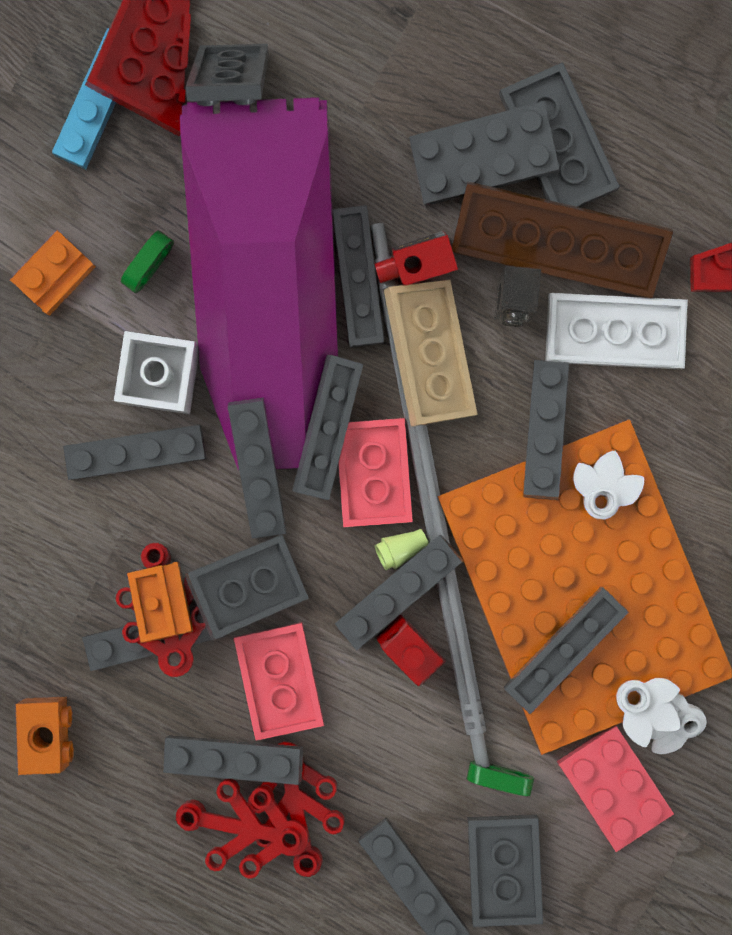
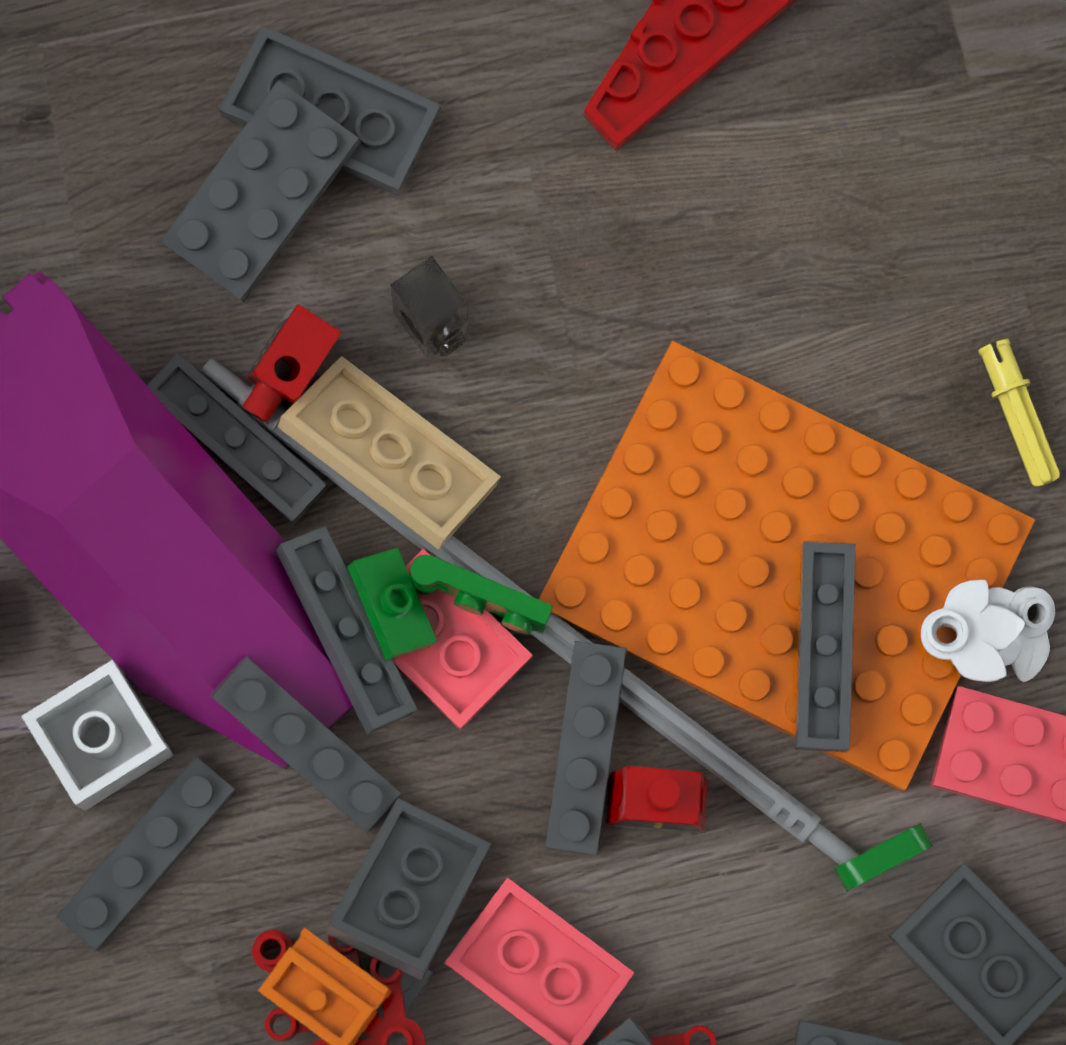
camera: 50 degrees left, 10 degrees down
(362, 434) = (392, 604): none -> green plate
(400, 548) = (544, 700): yellowish green cone -> none
(410, 467) = (479, 593): none -> green plate
(546, 430) = (591, 428): dark grey plate -> none
(561, 240) = (425, 211): reddish brown plate -> none
(609, 481) = (708, 424): white plate -> none
(616, 331) = (573, 260): white tile -> none

